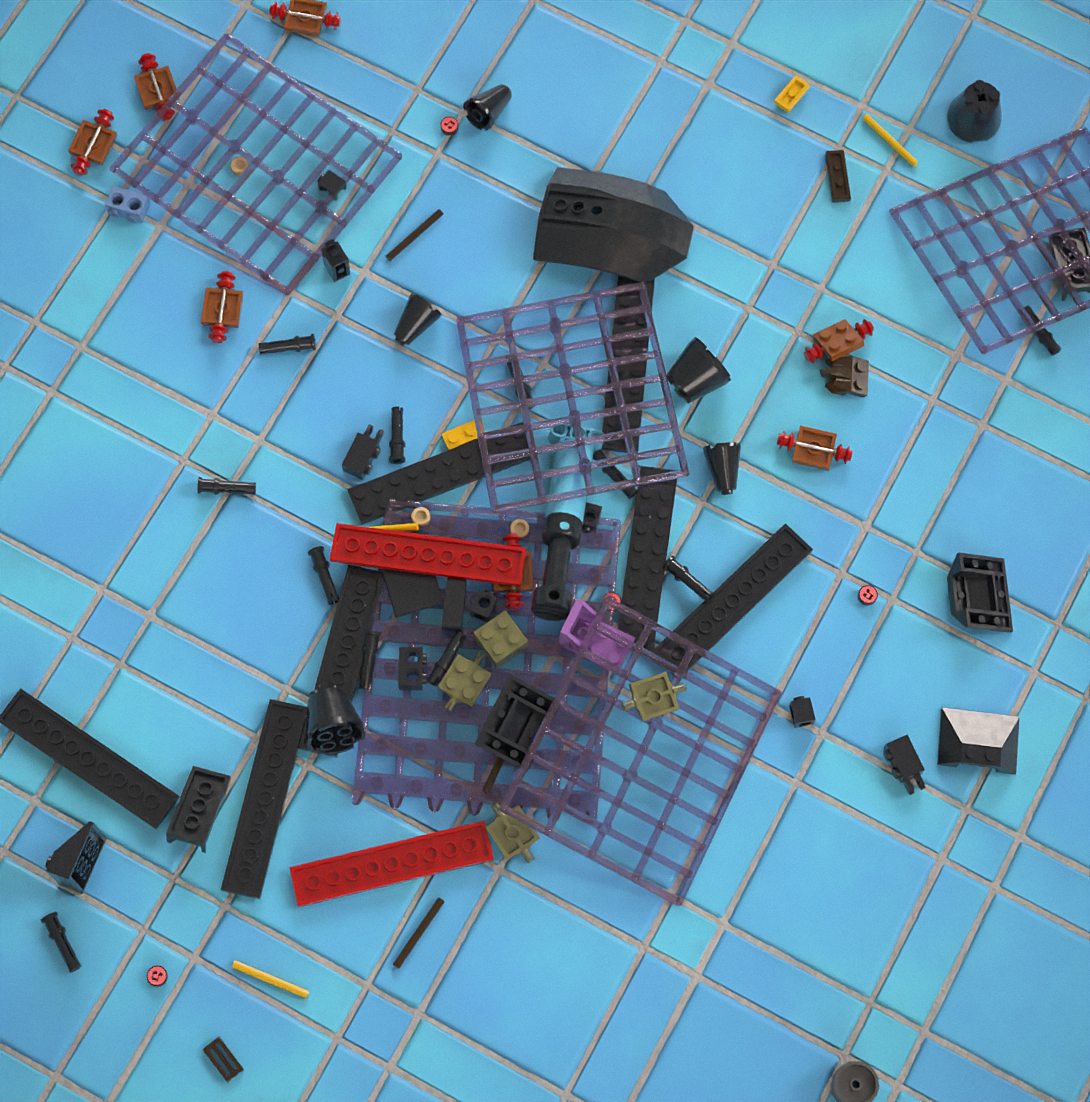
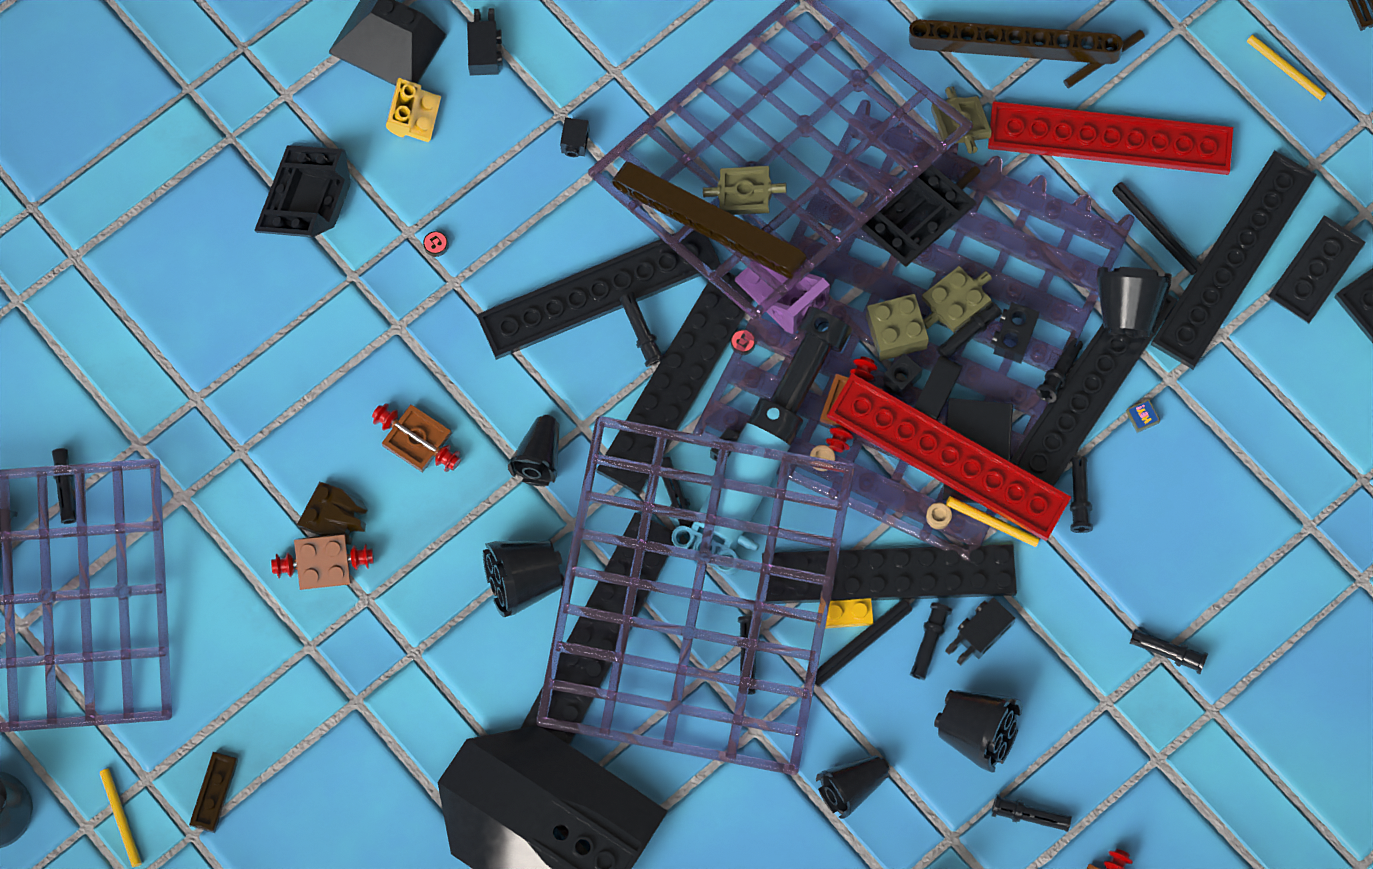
camera: 155 degrees left, 0 degrees up
(297, 651) = (1142, 416): none -> tile
(332, 803) = (1156, 228): none -> black axle
(342, 381) = (979, 726): none -> black cone
(443, 419) = (862, 642): none -> black axle
(501, 908) = (1025, 35): none -> dark brown beam
(671, 661) = (709, 220): none -> dark brown beam
(932, 687) = (412, 111): none -> yellow brick

